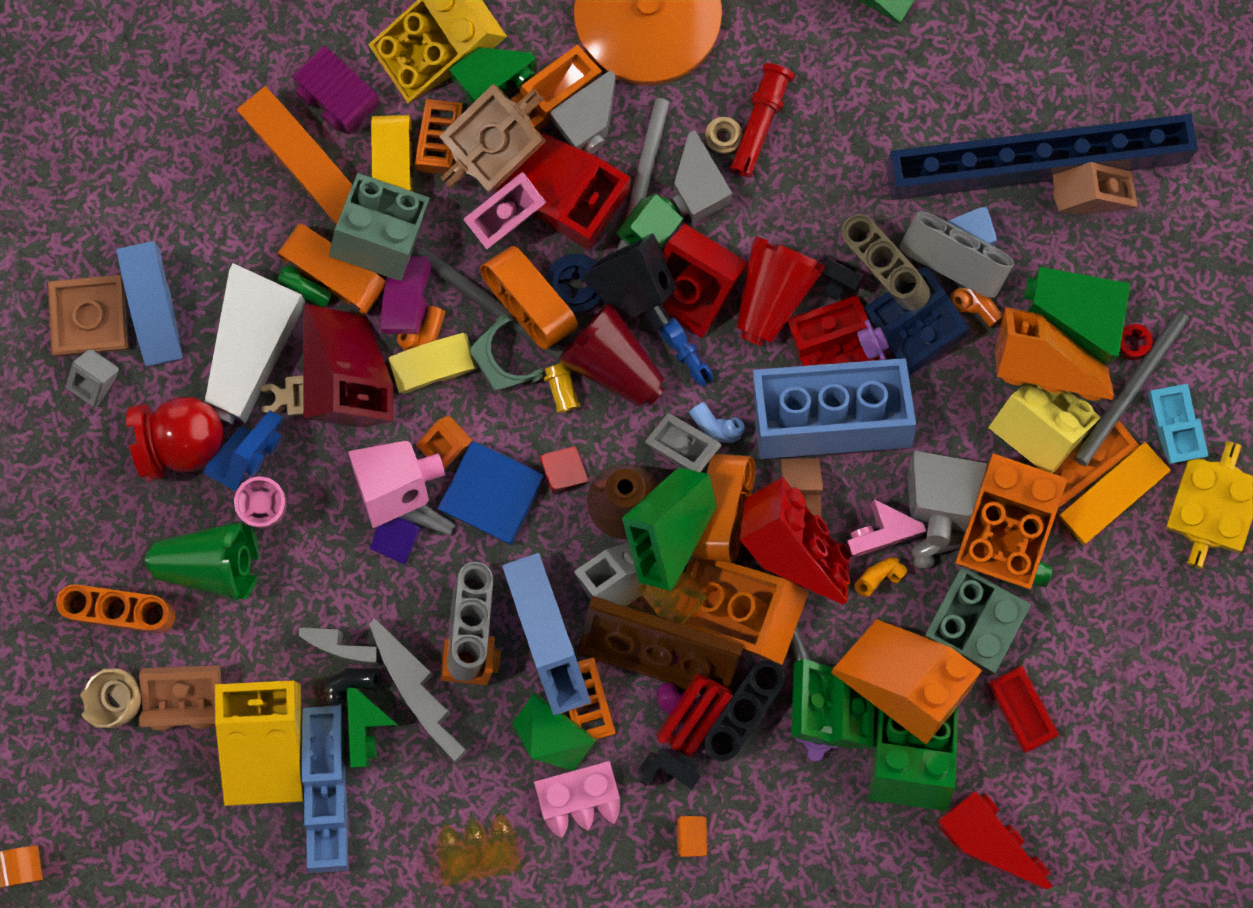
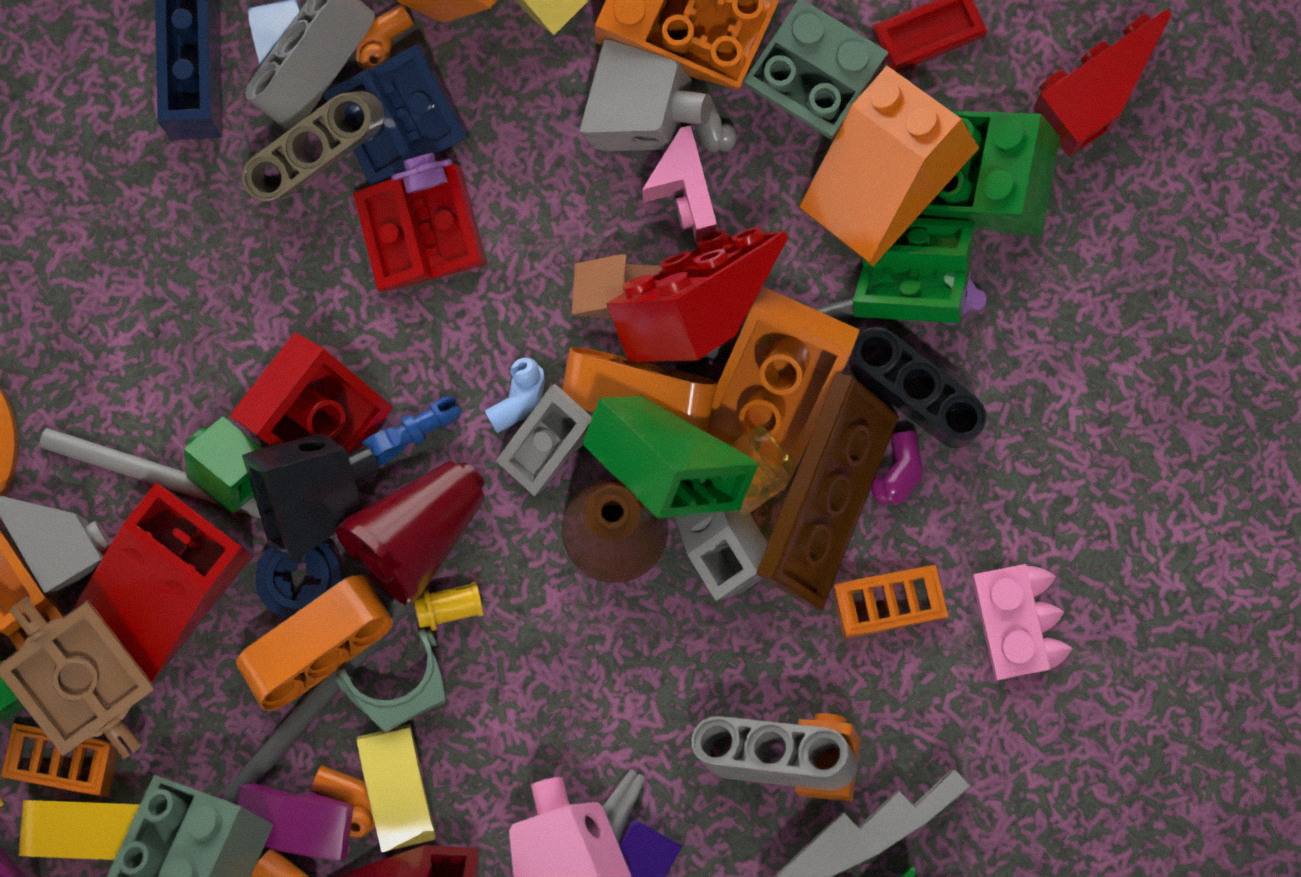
camera: 85 degrees left, 0 degrees up
(446, 439) = (509, 777): orange slope -> none
(478, 854) = (1091, 763): clear yellow plate -> none
(491, 493) = (590, 714): blue slope -> none
(504, 210) = (185, 665): bright pink slope -> none
(546, 634) = (799, 644): medium blue slope -> none
(551, 737) = (934, 652): green slope -> none
(563, 469) = (564, 611): slope -> none
(678, 742) = (922, 446): red tile -> none
(680, 768) = (988, 480): black bracket -> none
(691, 836) = (1079, 473): orange slope -> none
(698, 183) = (169, 392): light grey slope -> none
(723, 124) = (93, 344): tan plate -> none
(765, 104) = (67, 292): red pin -> none
(773, 289) = (336, 300): red cone -> none
(833, 408) = (511, 234): medium blue slope -> none
(841, 275) = (324, 211): black tile -> none
(875, 574) = (739, 200): light orange arm -> none

